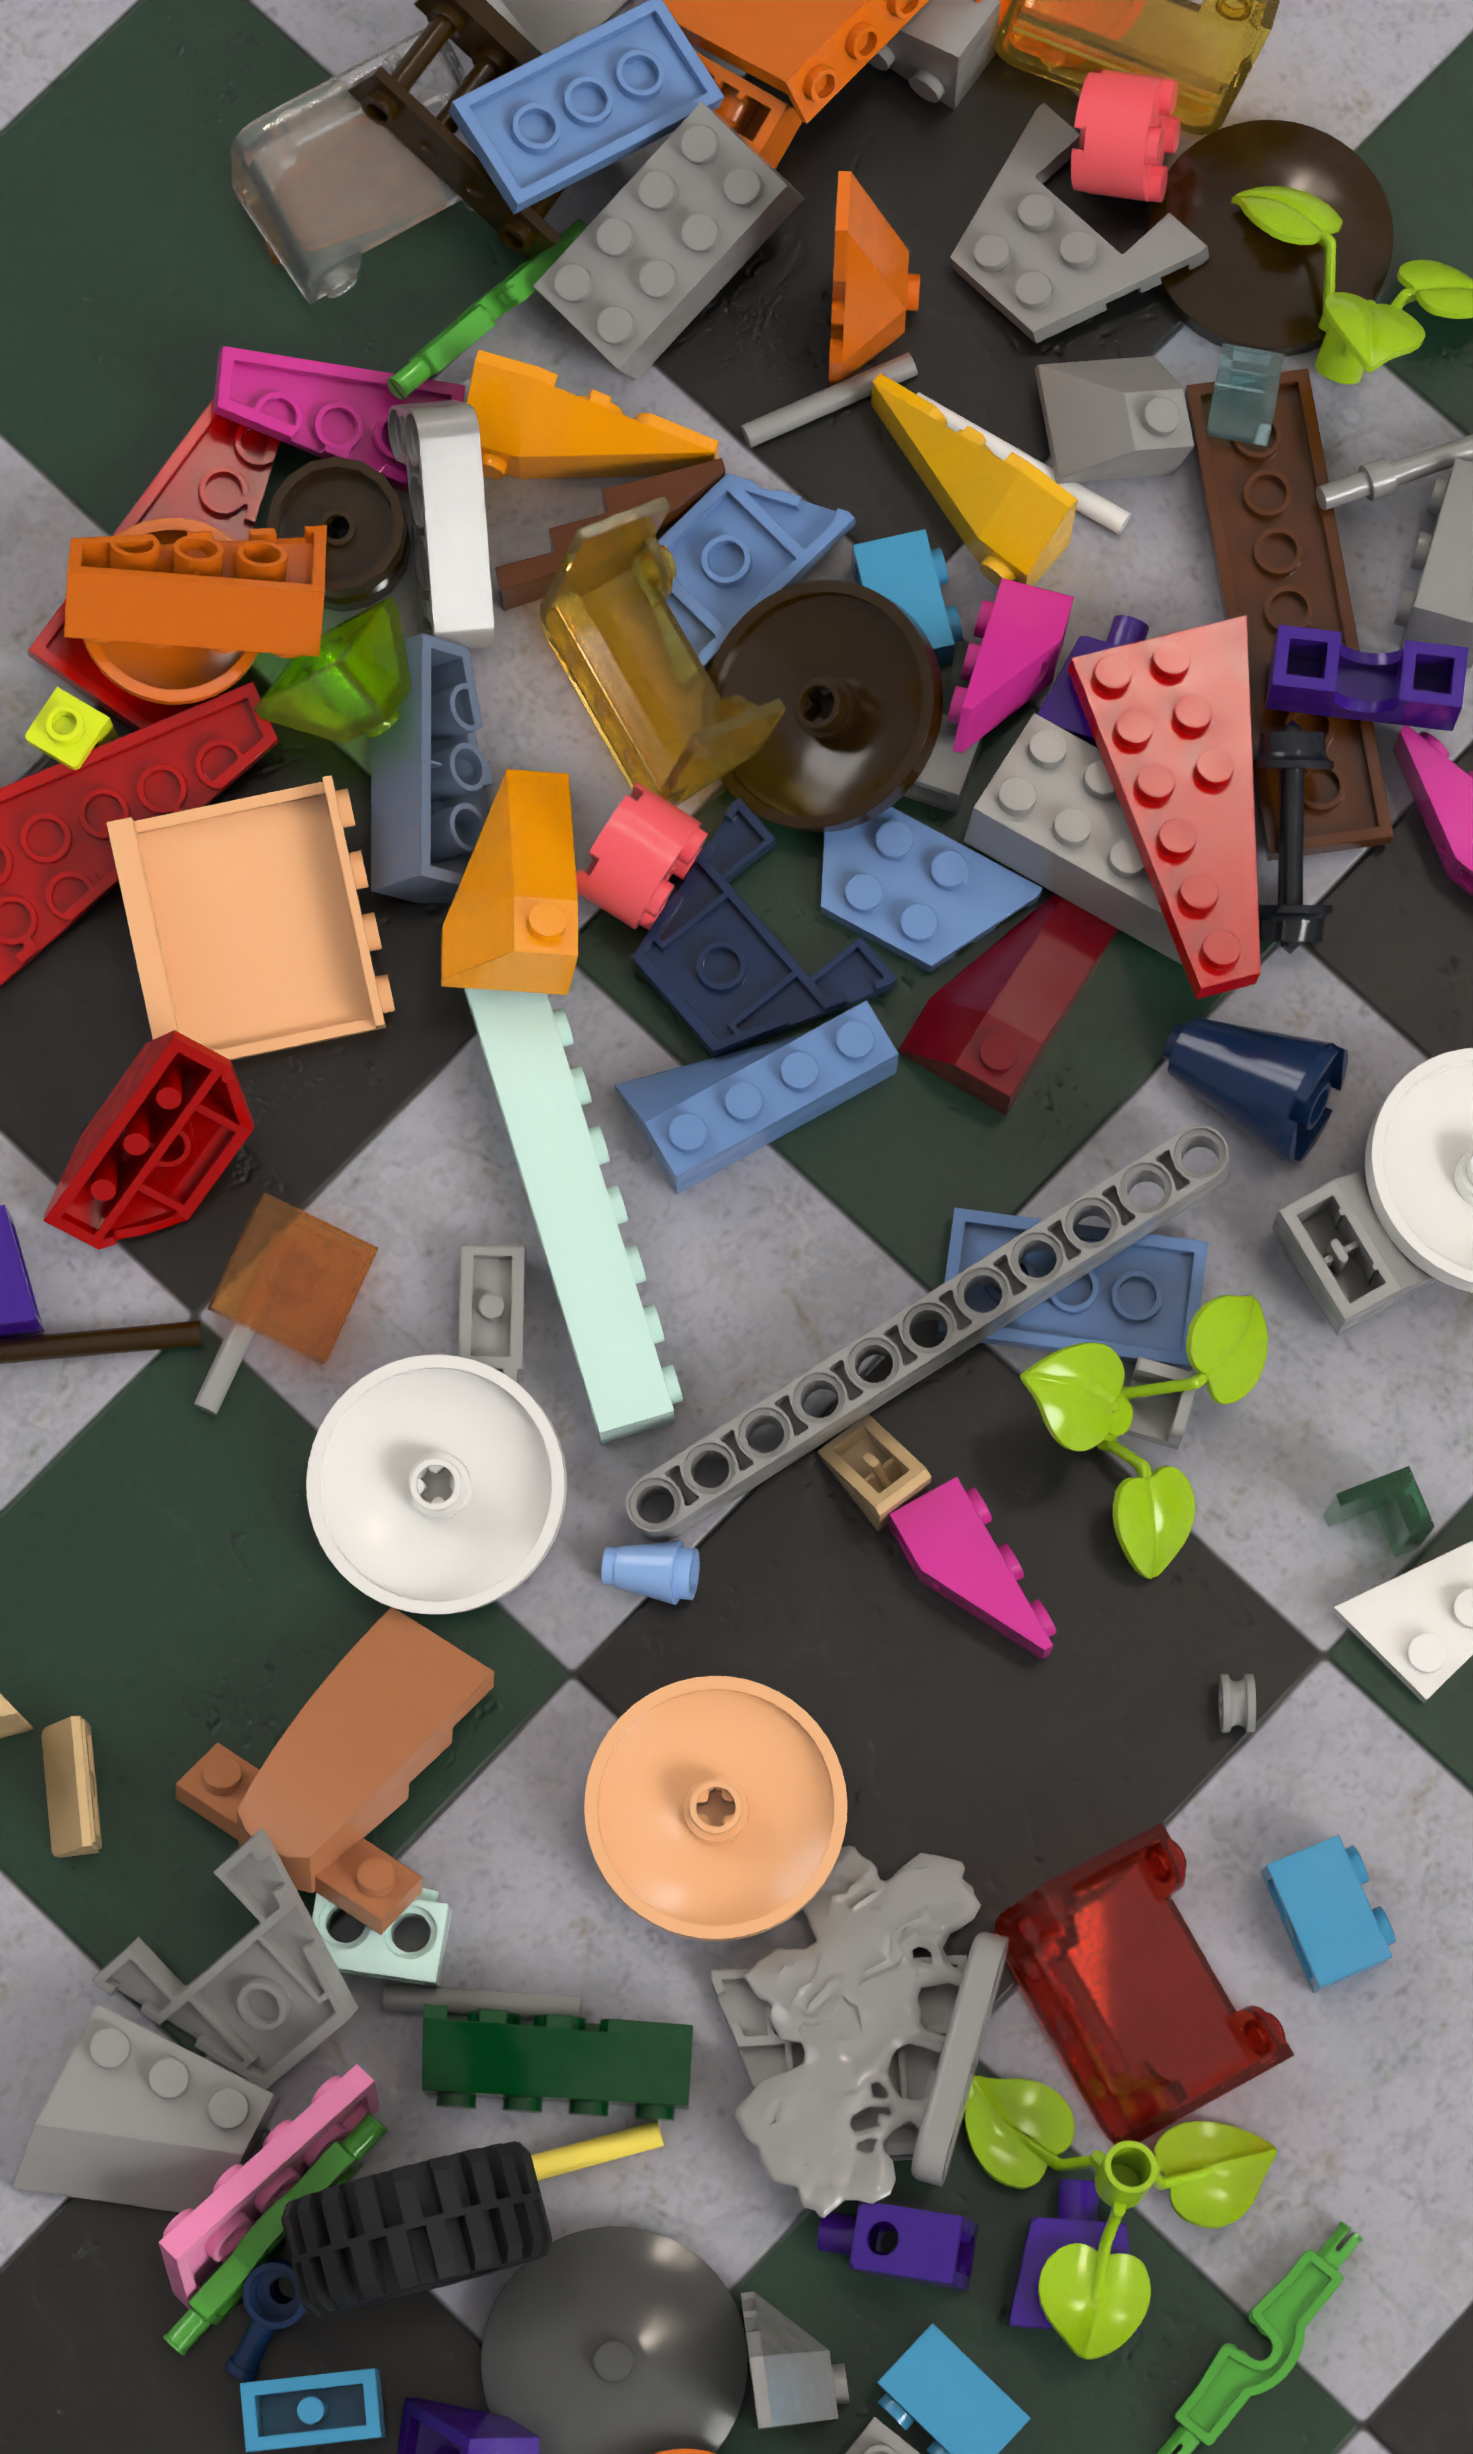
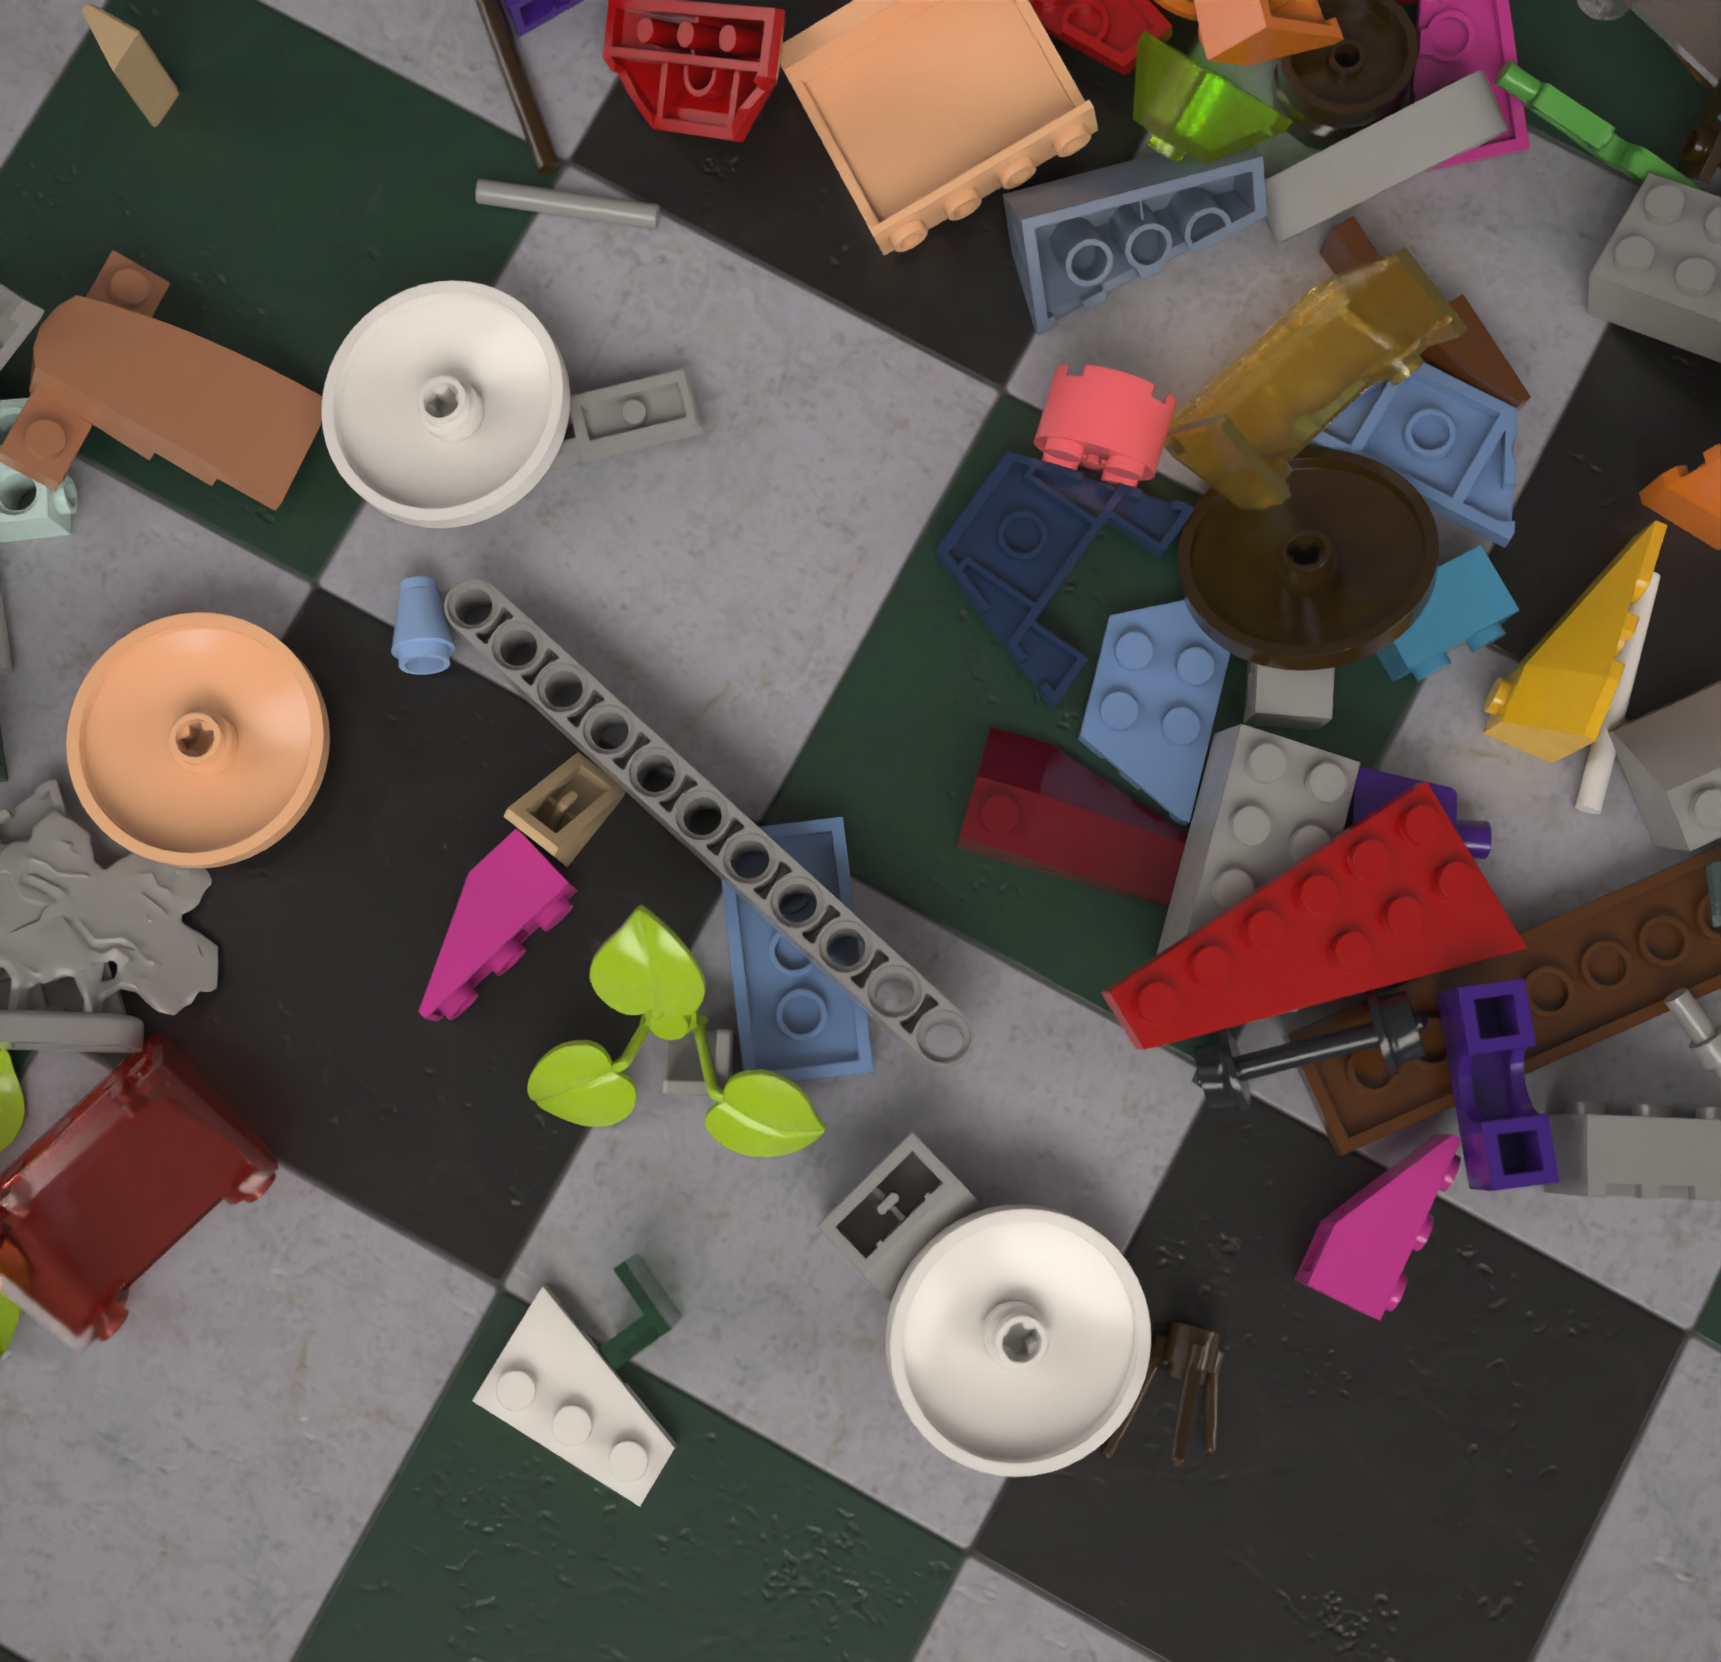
camera: 75 degrees right, 5 degrees up
(71, 1788) = (102, 176): tan slope -> none
(293, 1278) = (615, 228): clear orange tile -> none
(518, 896) = (1024, 320): light orange wedge -> none
(551, 434) = (1502, 227): light orange wedge -> none
(575, 1212) = (767, 449): light aqua brick -> none
(741, 1101) = (892, 584): medium blue wedge -> none
(825, 401) = (1622, 491): light grey bar -> none
(1013, 663) = (1409, 730): dark pink slope -> none
(1237, 1703) = (423, 1213): light grey bush -> none
(1259, 1080) = (1049, 1082): dark blue cone -> none
(1328, 1912) = (233, 1353): dark azure brick -> none

